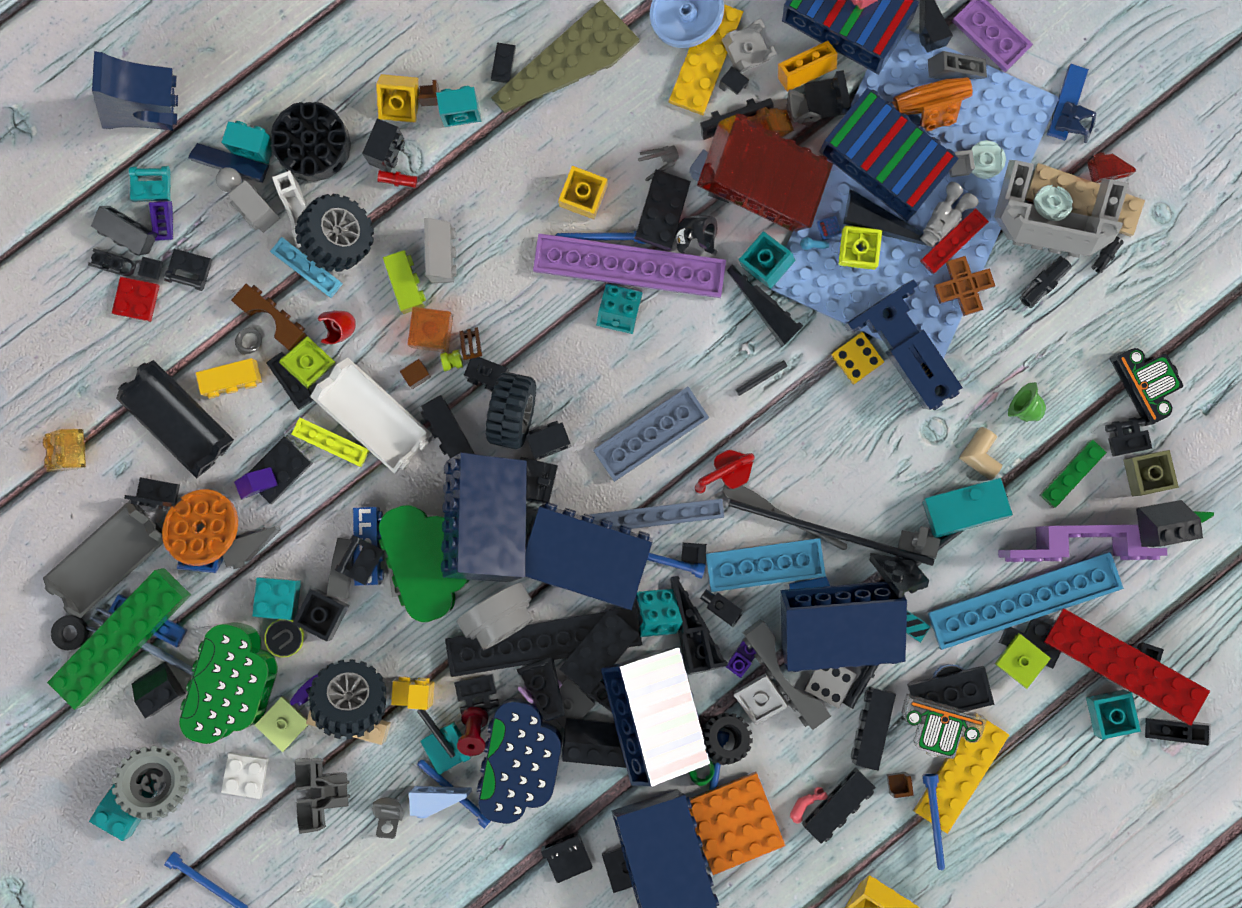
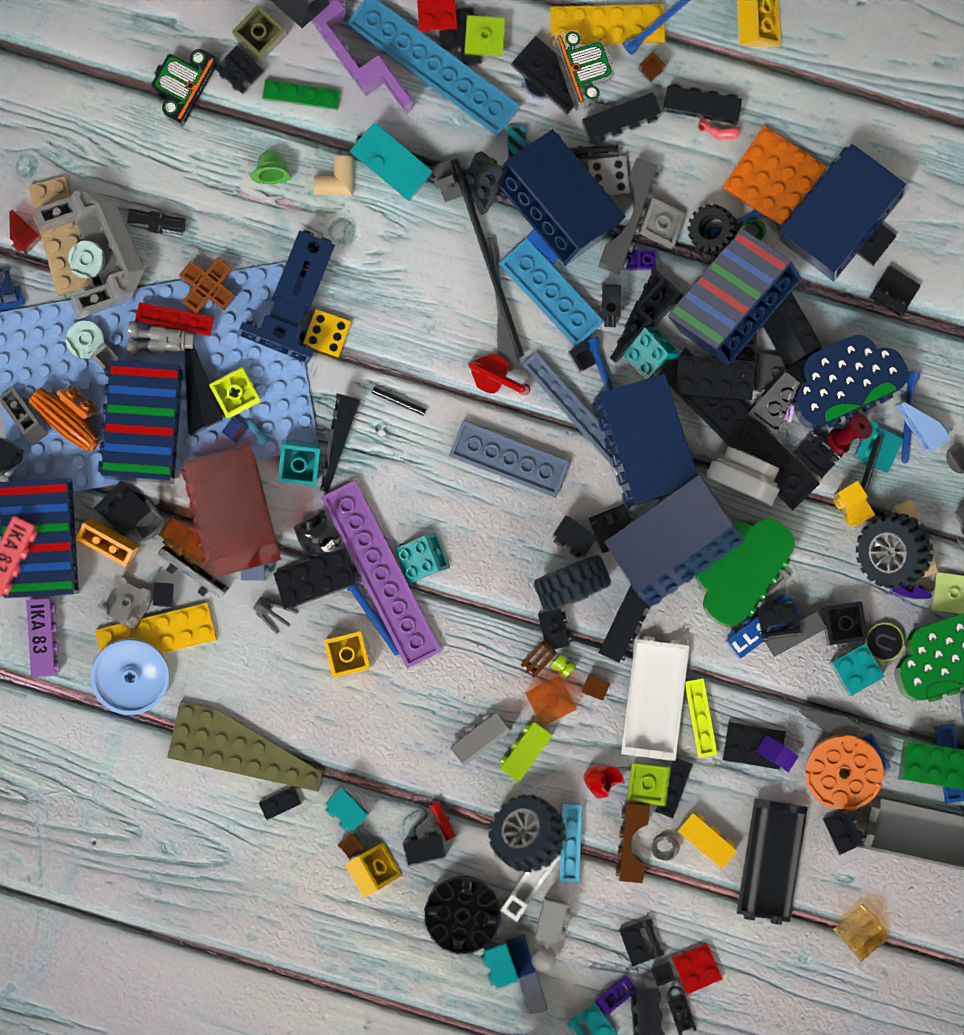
camera: 125 degrees left, 0 degrees up
(1107, 255) = (97, 186): black pin -> none

